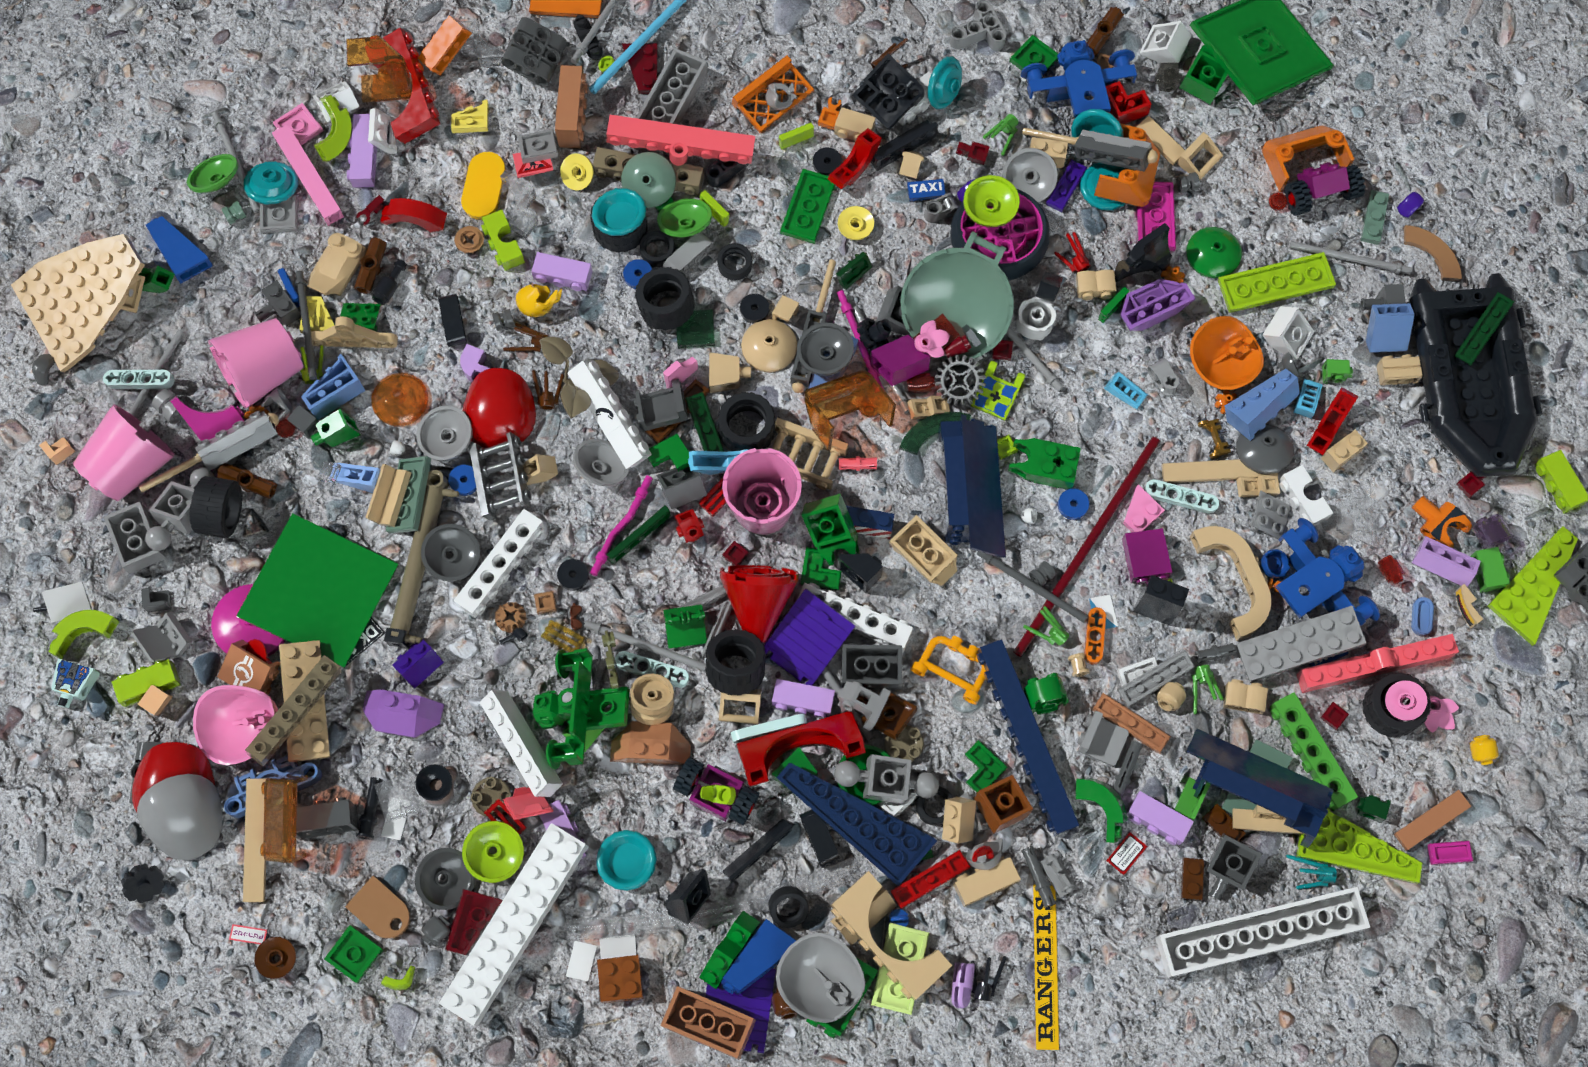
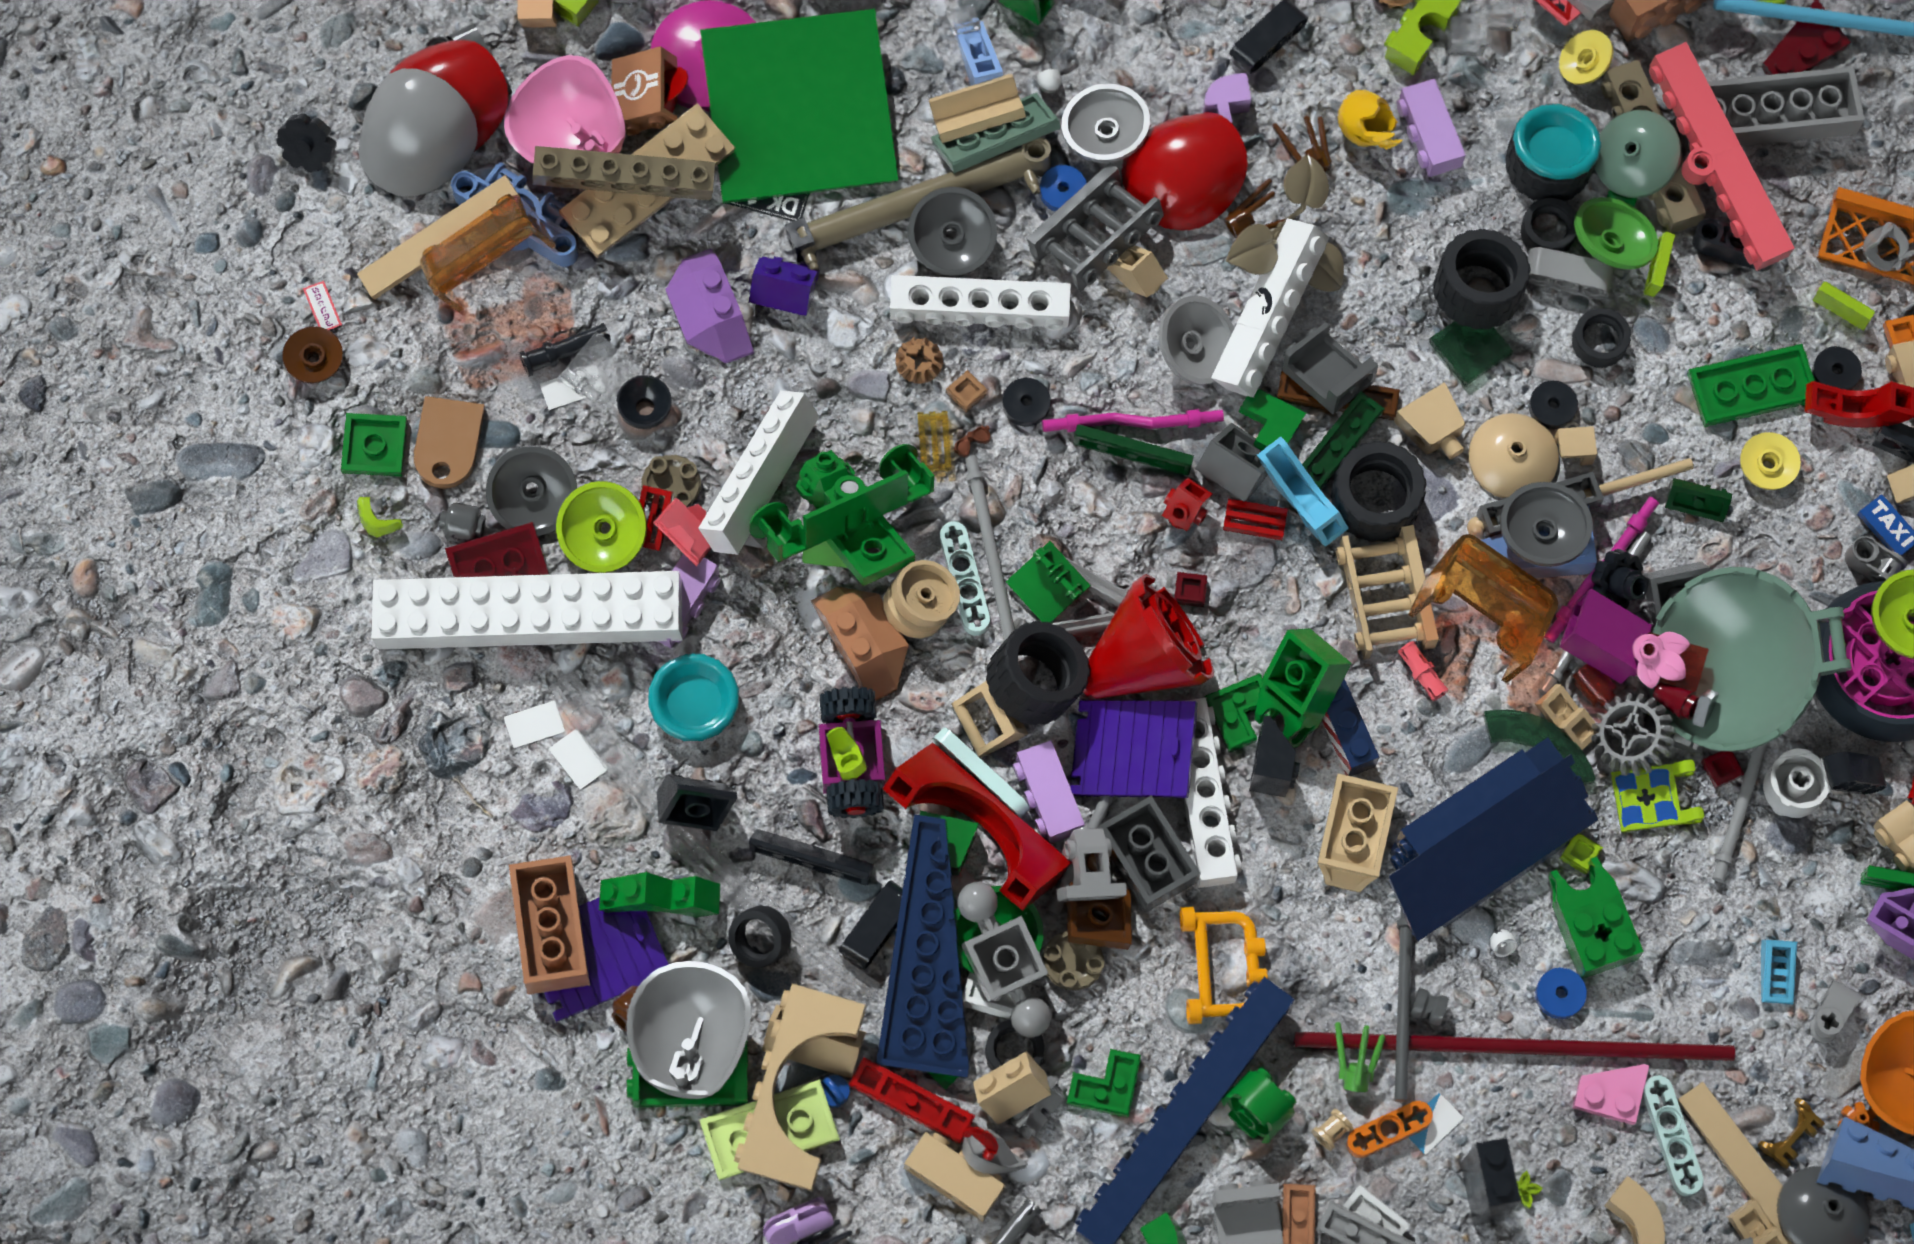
camera: 55 degrees right, 0 degrees up
(326, 818) = (517, 301): dark grey brick -> none
(407, 406) = (1113, 56): clear orange dish -> none
(507, 318) = (1312, 98): dark grey wheel -> none
(518, 633) = (904, 383): black hand -> none
(609, 640) = (933, 515): olive plant -> none
(620, 979) = (539, 783): dark orange brick -> none
(634, 267) = (1500, 214): blue piece -> none
(680, 371) = (1393, 362): bright pink tile -> none
(757, 958) = (667, 934): blue slope -> none
(763, 478) = (1288, 539): bright pink cone -> none
(1003, 804) = (1071, 1135): dark orange brick -> none
(1146, 555) = (1551, 1135): magenta brick -> none

